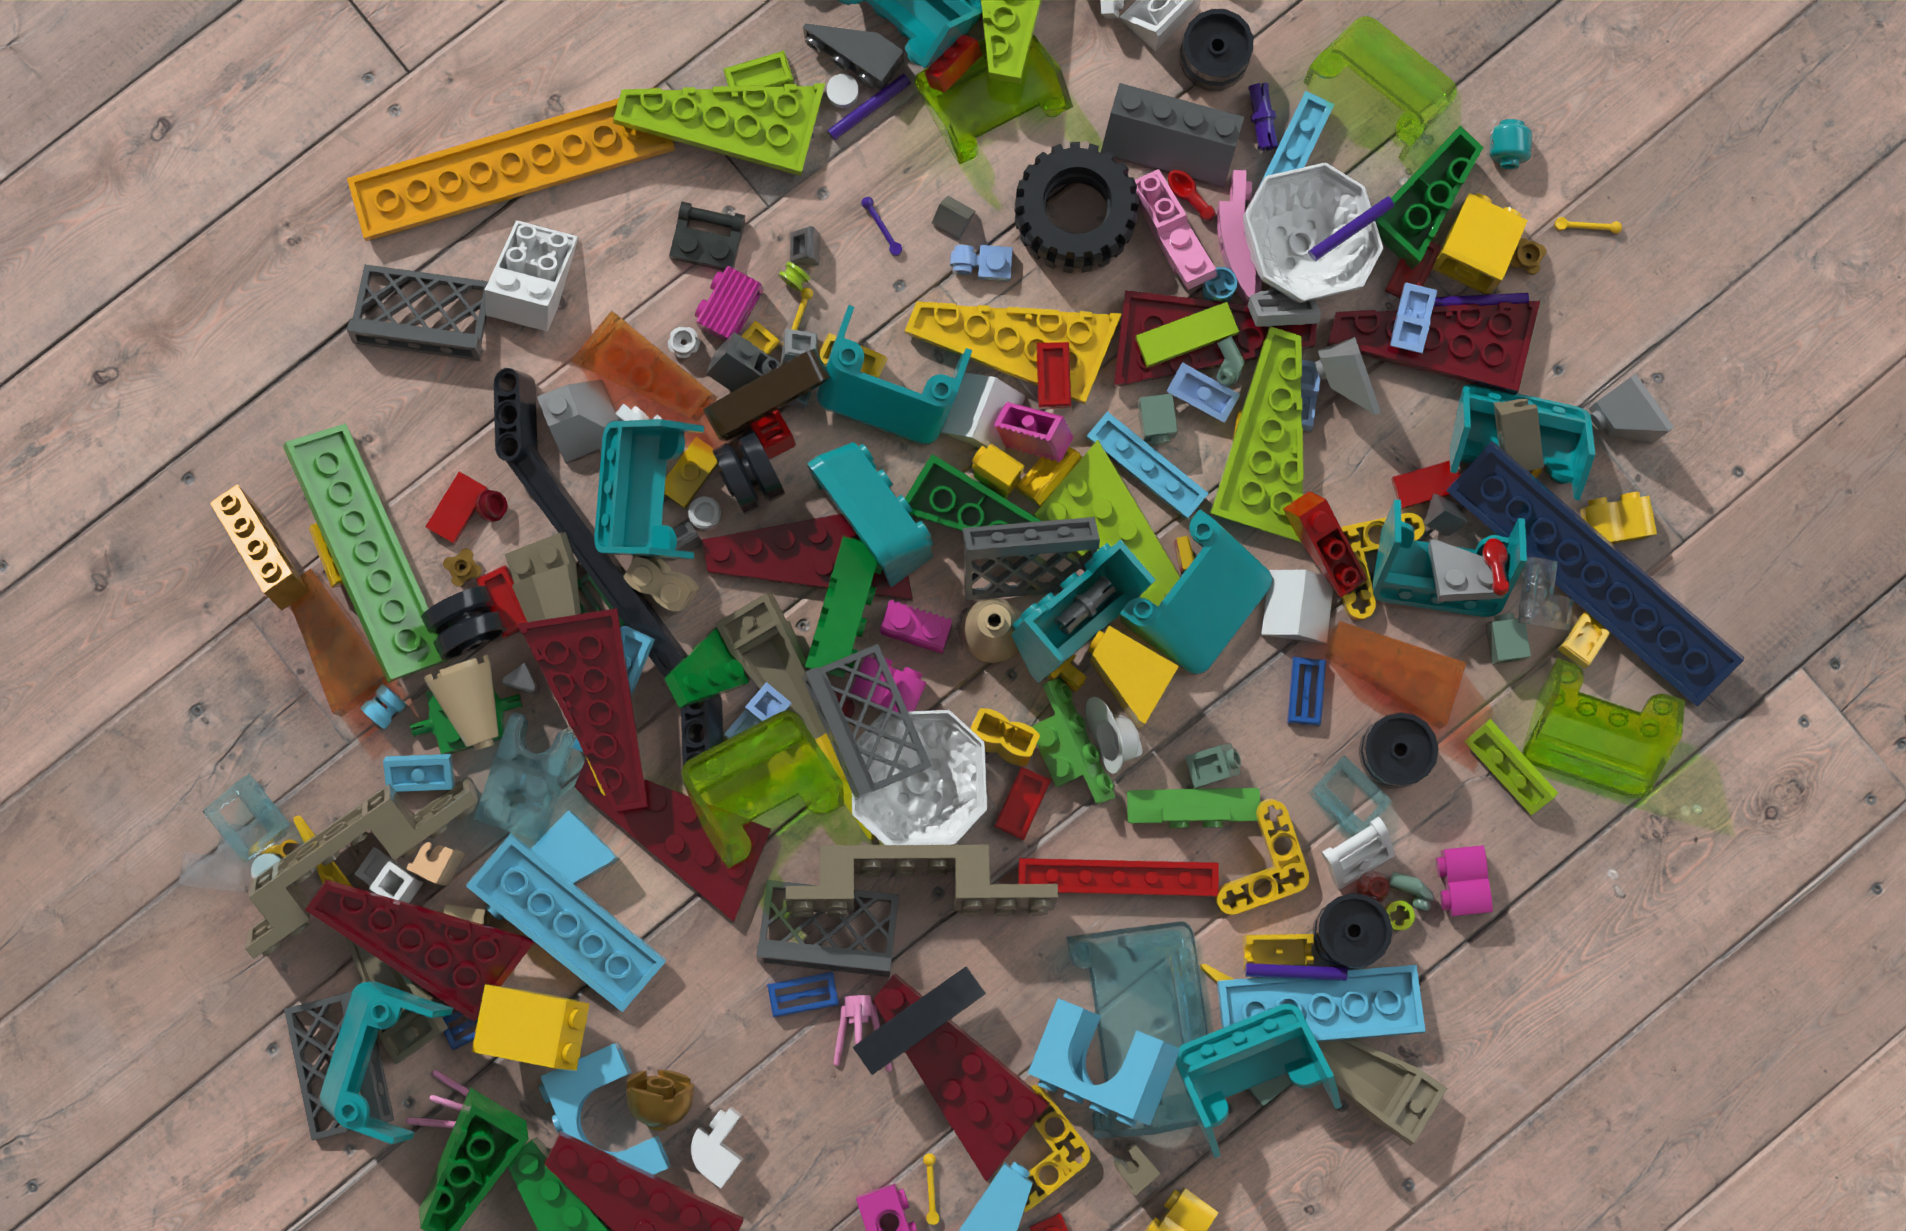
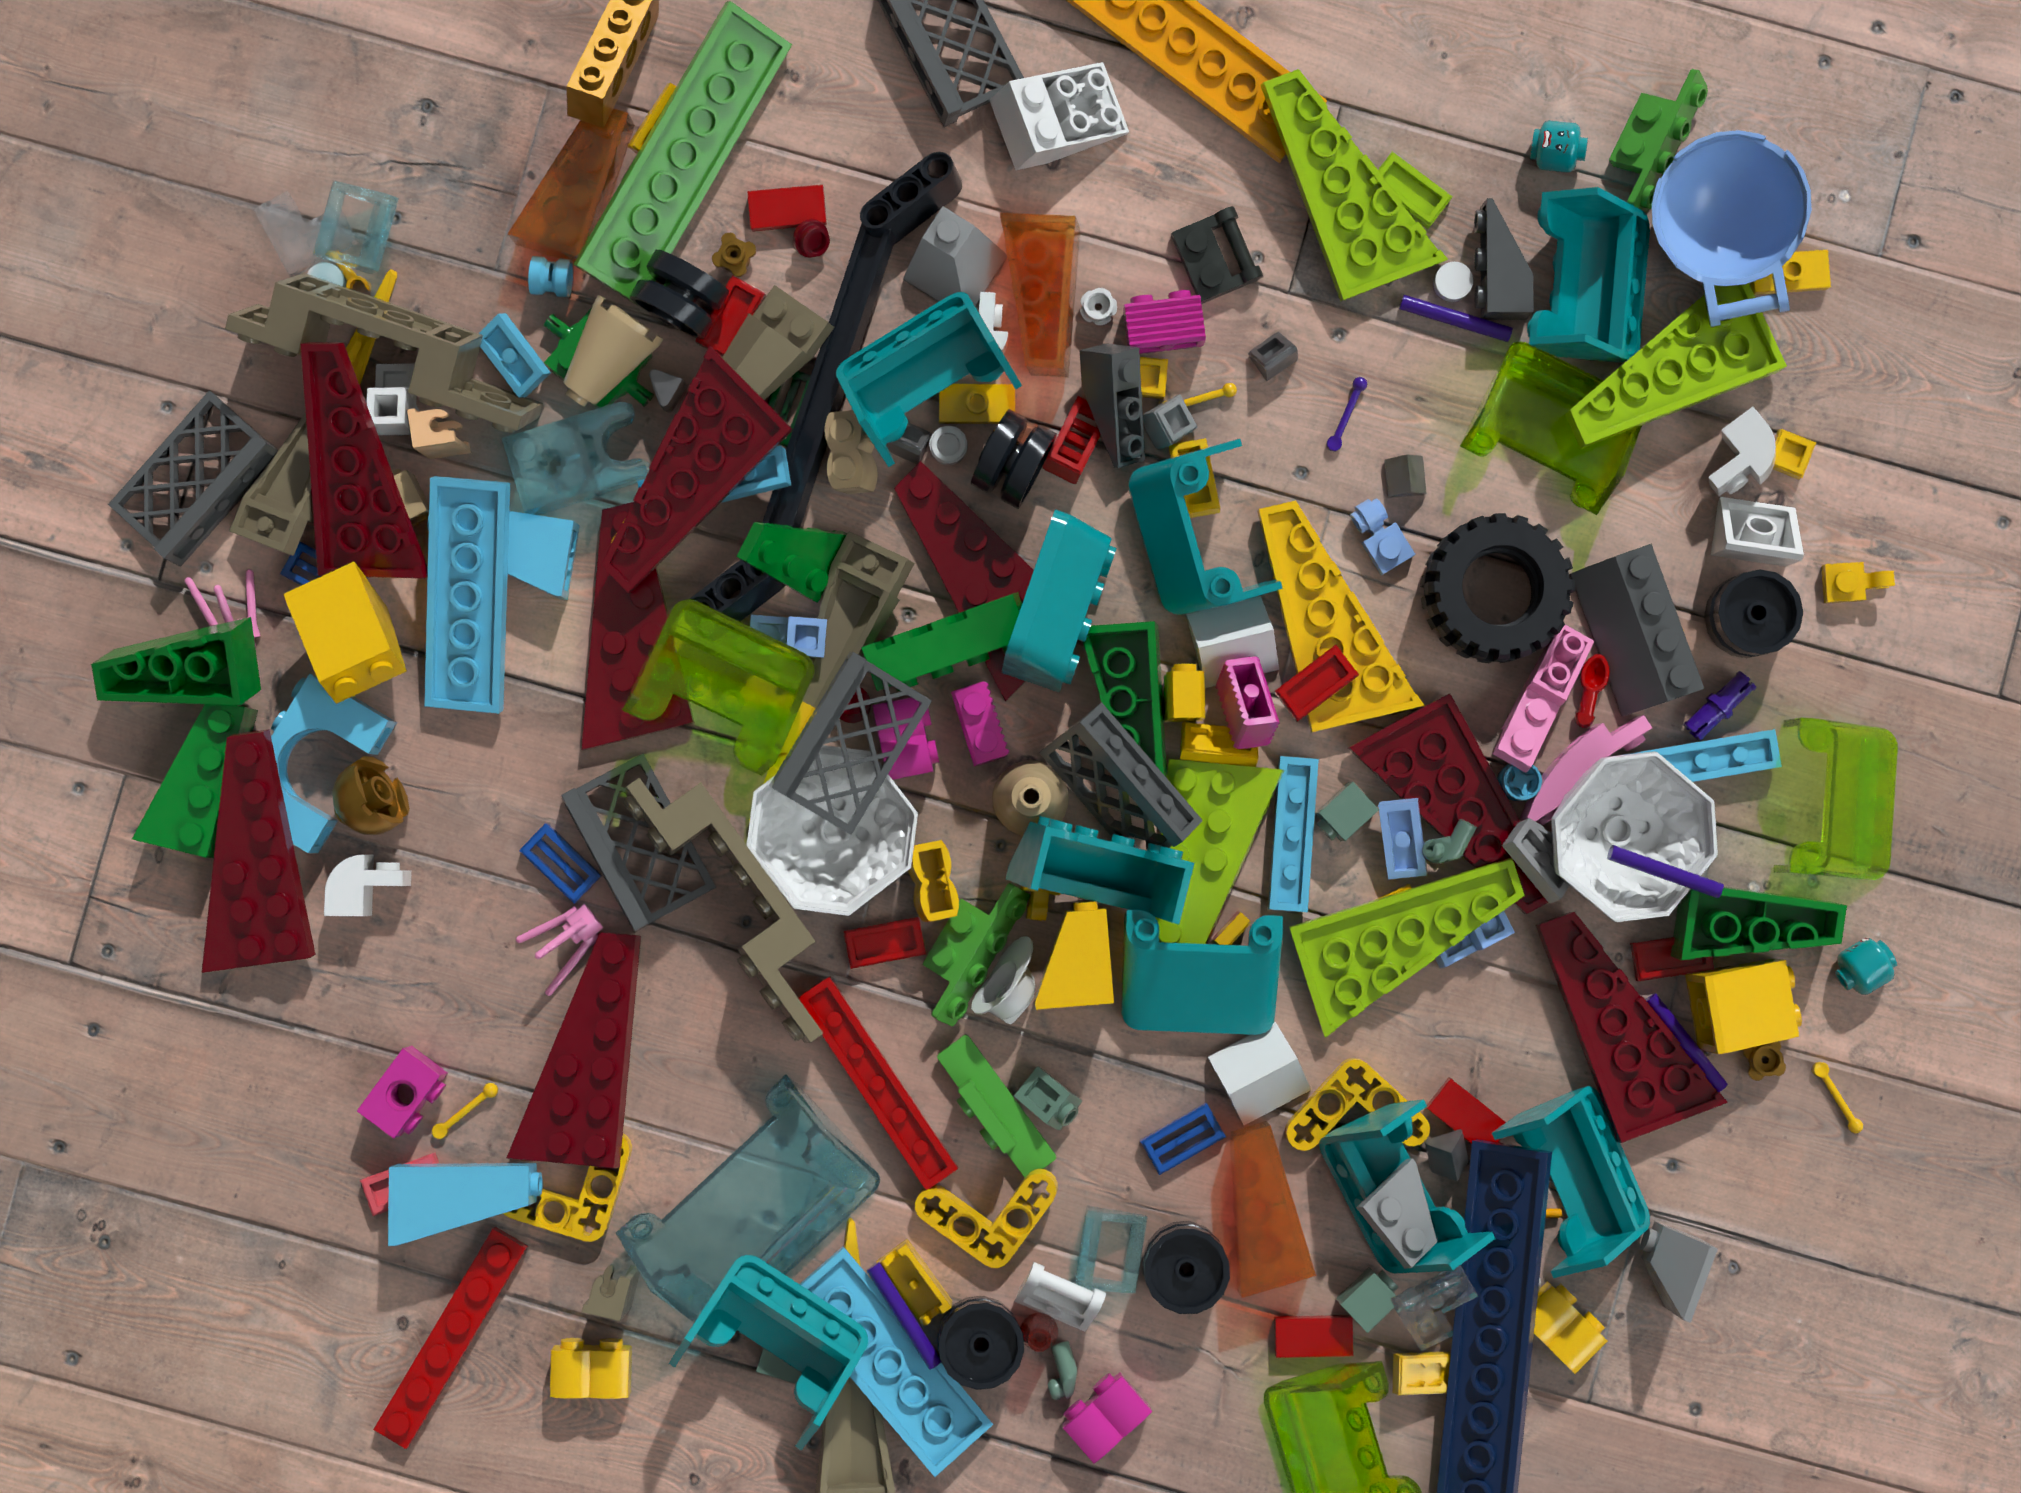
camera: 55 degrees right, 5 degrees up
(369, 1009) = (254, 474): teal windscreen -> none
(771, 391) = (1098, 422): dark brown beam -> none
(794, 276) = (1236, 365): lime bush -> none
(919, 1020) = (606, 991): black slope -> none
(953, 63) = (1555, 369): red piece -> none
(1084, 605) = (1110, 871): dark grey pin -> none
(1130, 1093) = (662, 1153): medium azure arch -> none
(1187, 334) = (1448, 783): lime tile -> none
(1325, 542) = (1338, 1058): red slope -> none
(1347, 373) = (1518, 966): light grey slope -> none
(1406, 923) = (1026, 1386): lime bush -> none
(1413, 317) = (1621, 991): light blue slope -> none
(1496, 557) = (1437, 1235): red piece -> none
(1508, 696) = (1313, 1336): none -> red tile
(1511, 767) = (1247, 1385): lime plate -> none
(1519, 432) = (1579, 1173): dark tan hinge -> none

